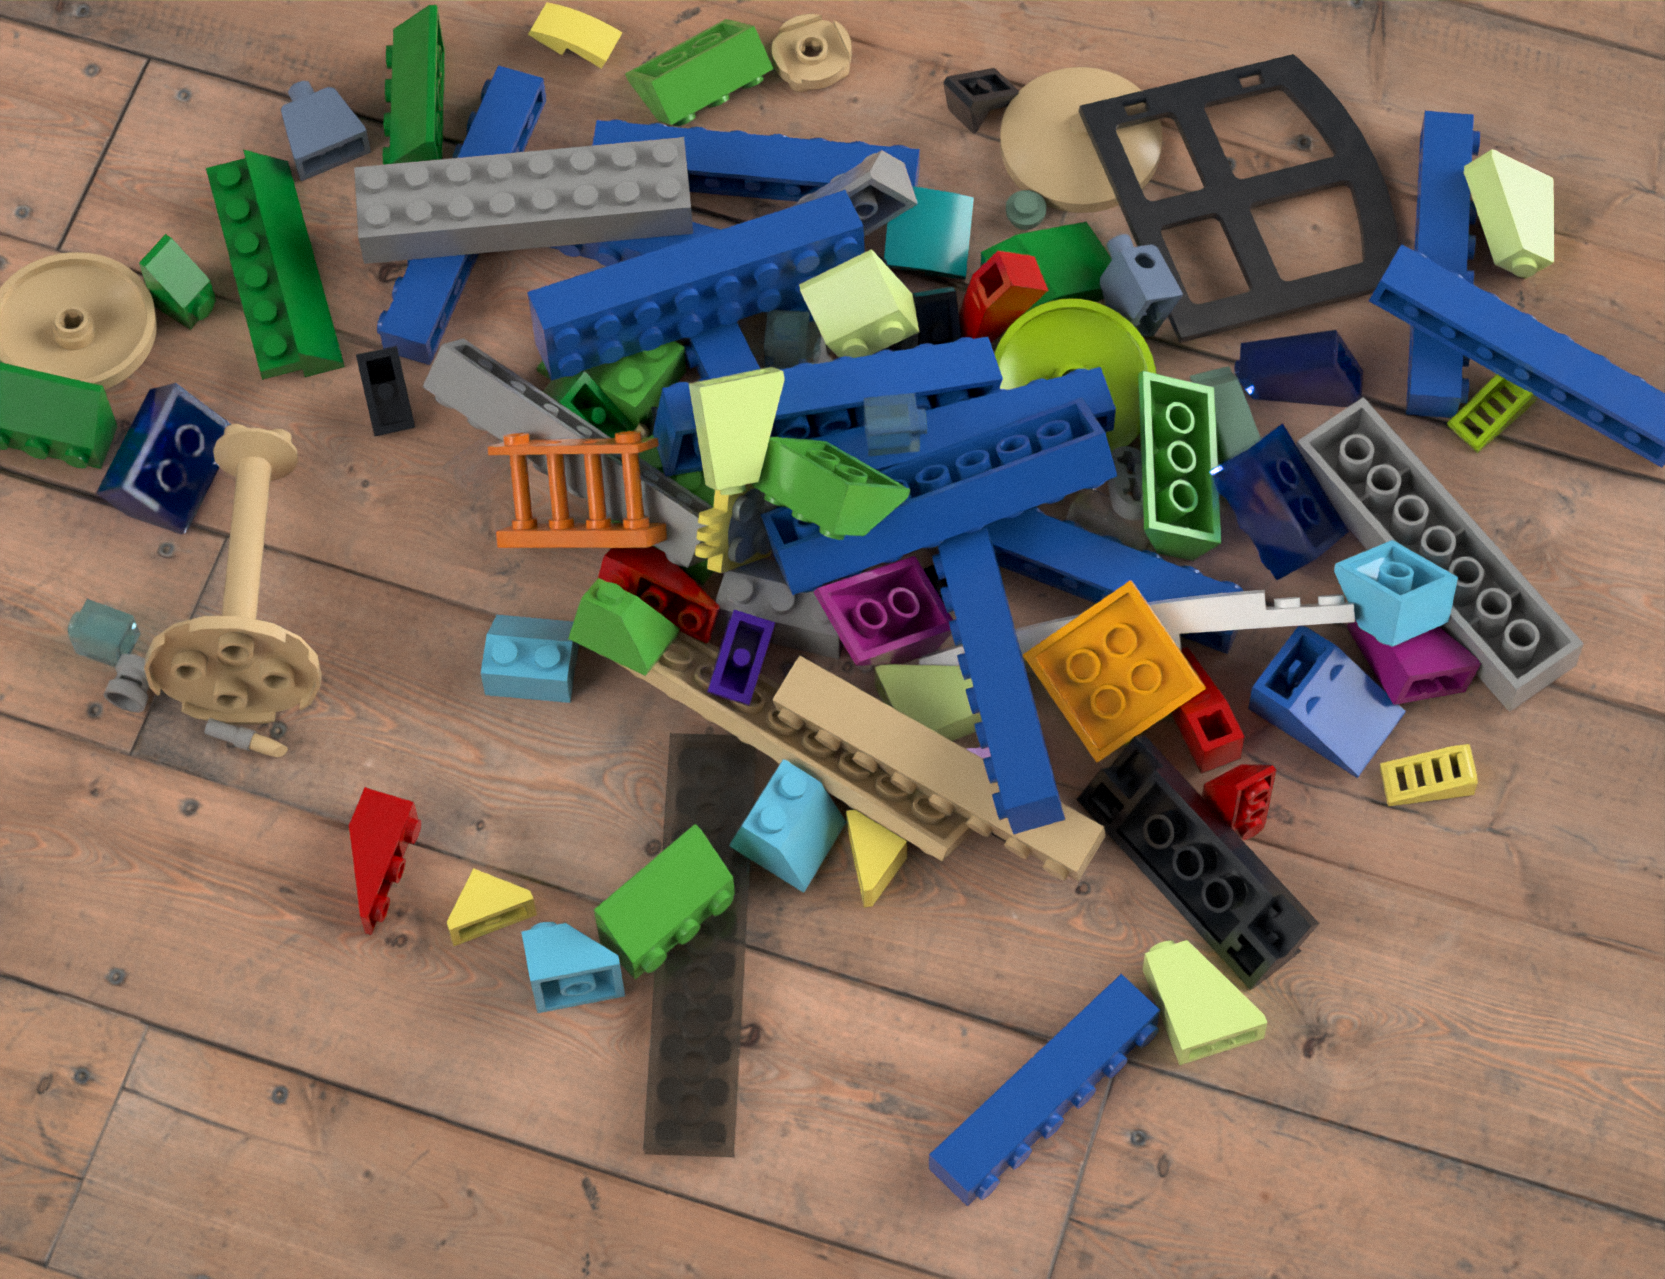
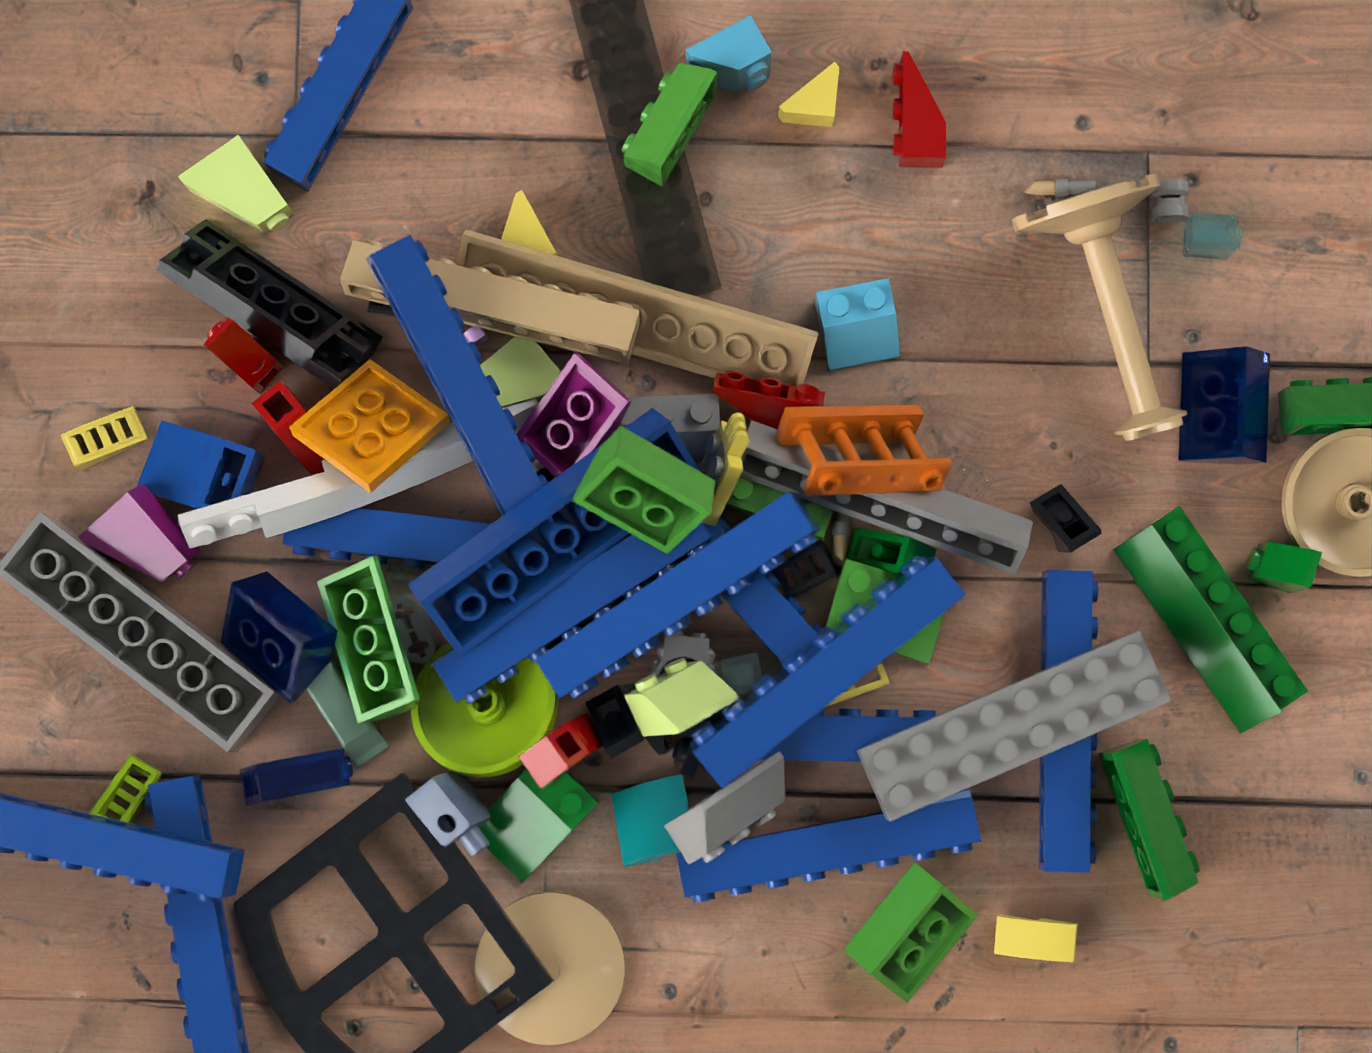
camera: 165 degrees right, 20 degrees up
(322, 130) = (1225, 767): sand blue torso -> none
(622, 627) = (782, 344): bright green slope -> none
(735, 425) = (737, 512): yellowish green slope -> none
(740, 657) = (681, 354): dark purple slope -> none
(790, 826) = (601, 229): medium azure slope -> none
(811, 72) = (816, 1007): tan plate -> none
(893, 424) = (611, 579): clear light blue brick -> none
(975, 94) = (648, 982): black slope -> none
(1025, 209) = (577, 877): sand green plate -> none
(1396, 592) = (154, 561): medium azure slope -> none
(1514, 212) = (141, 990): yellowish green slope -> none

